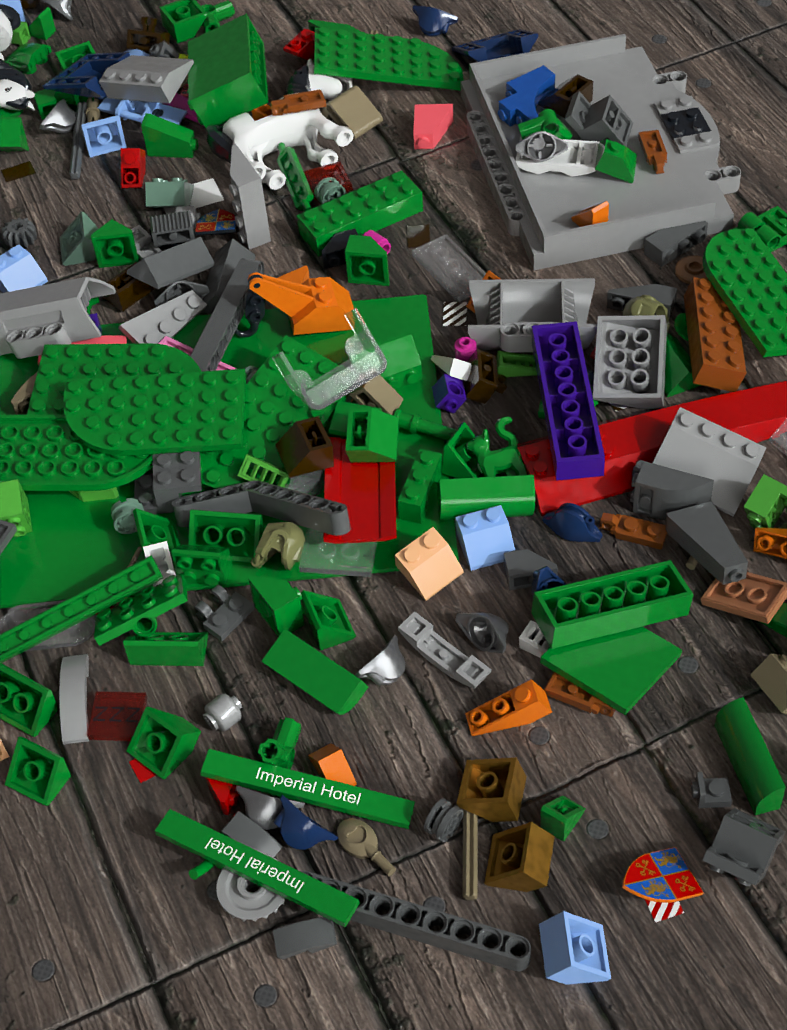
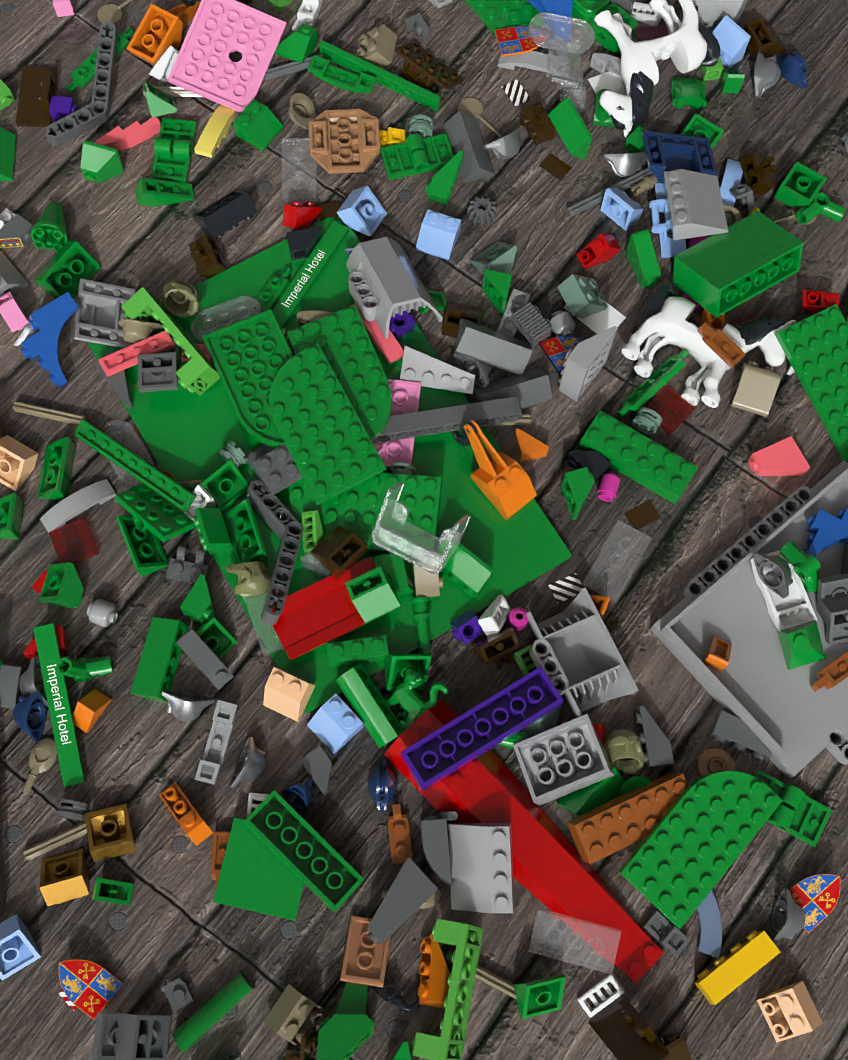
camera: 55 degrees right, 20 degrees up
(347, 619) = (204, 659): none -> dark grey slope

